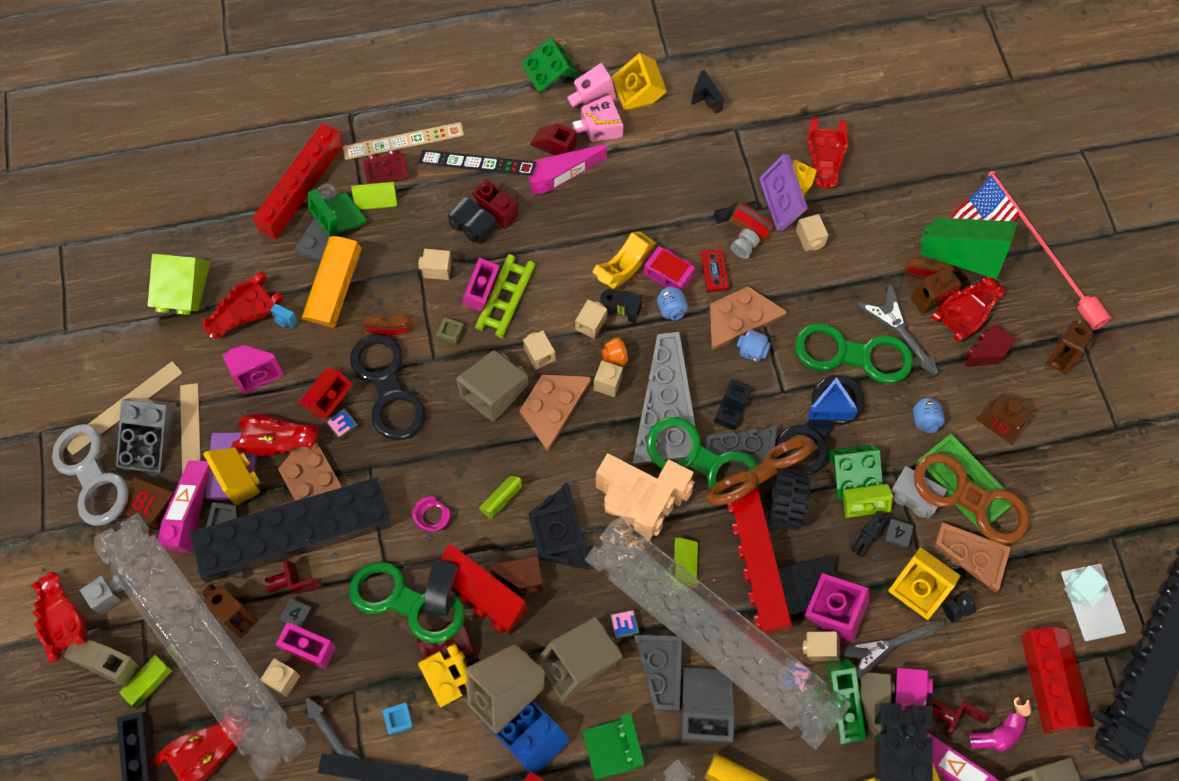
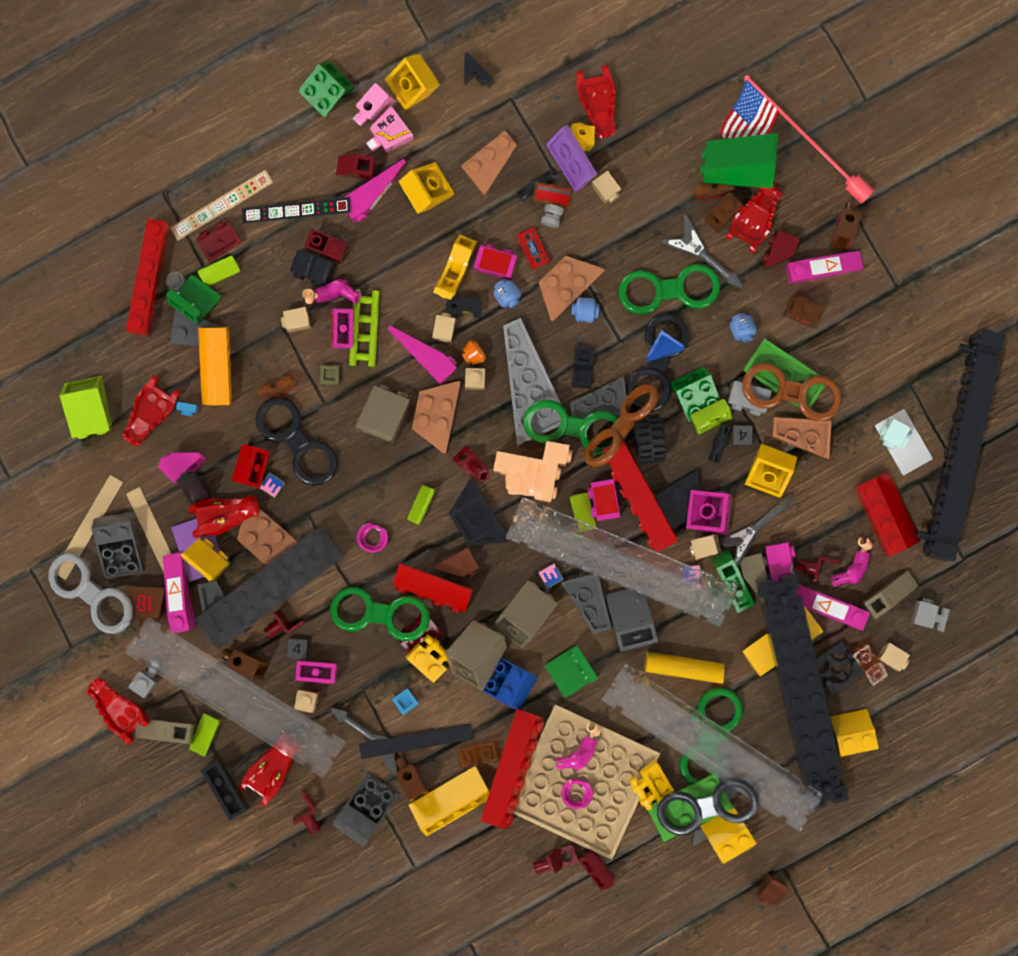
camera: 15 degrees left, 20 degrees up
(253, 390) = (194, 486): none -> black slope
(439, 586) = (403, 598): black slope -> none
(485, 248) = (331, 292): none -> dark pink arm
(539, 349) = (409, 370): tan brick -> none
(567, 345) = (433, 361): none -> dark pink slope
(573, 469) = (472, 465): none -> dark red bracket
(619, 179) = (426, 187): none -> yellow slope
(691, 178) = (489, 161): none -> nougat wing
(715, 555) = (604, 500): none -> red brick
(958, 607) = (801, 481): black wheel -> none
(1033, 379) = (823, 267): none -> dark pink slope

